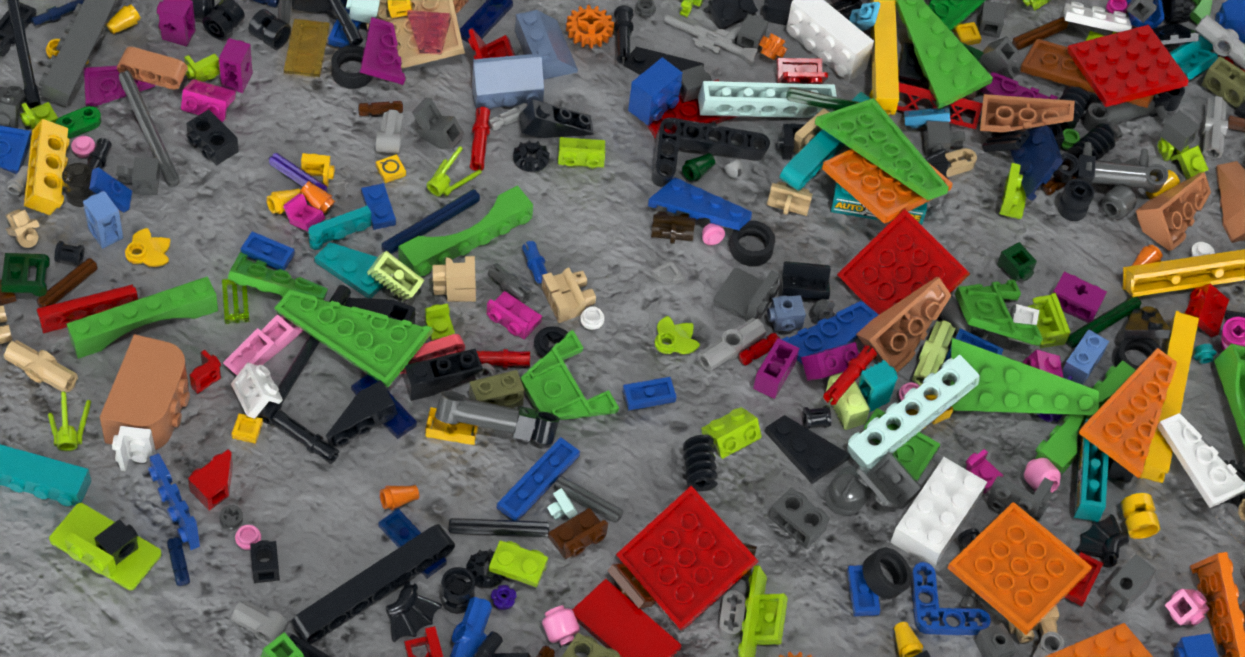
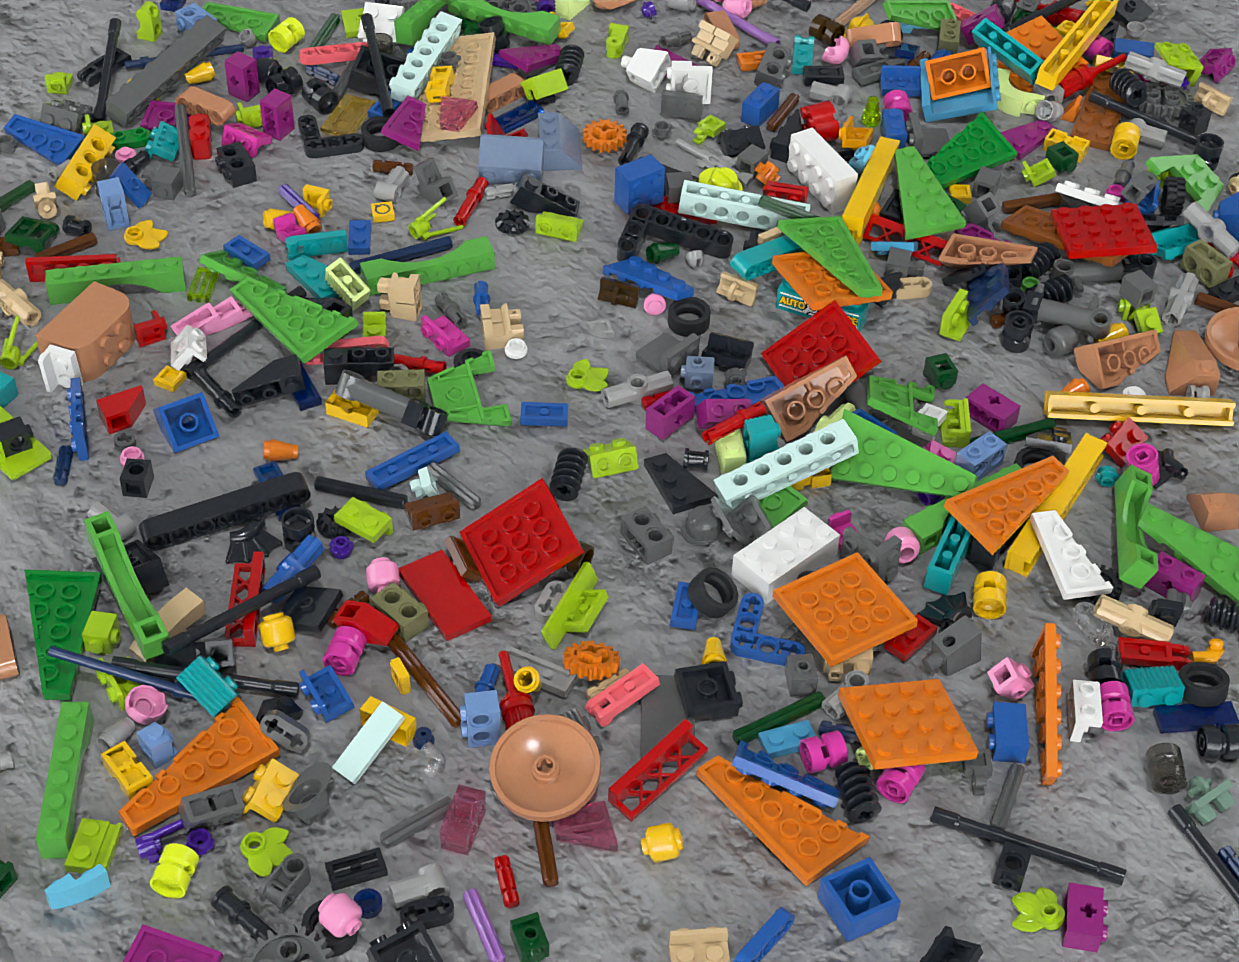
camera: 20 degrees right, 10 degrees down
(119, 121) = (163, 142): none -> teal bracket
(159, 107) = (200, 137): none -> red brick
(287, 90) = (320, 147): none -> black beam
(288, 481) = (186, 422): none -> blue slope
(727, 64) = (721, 177): none -> neon yellow piece

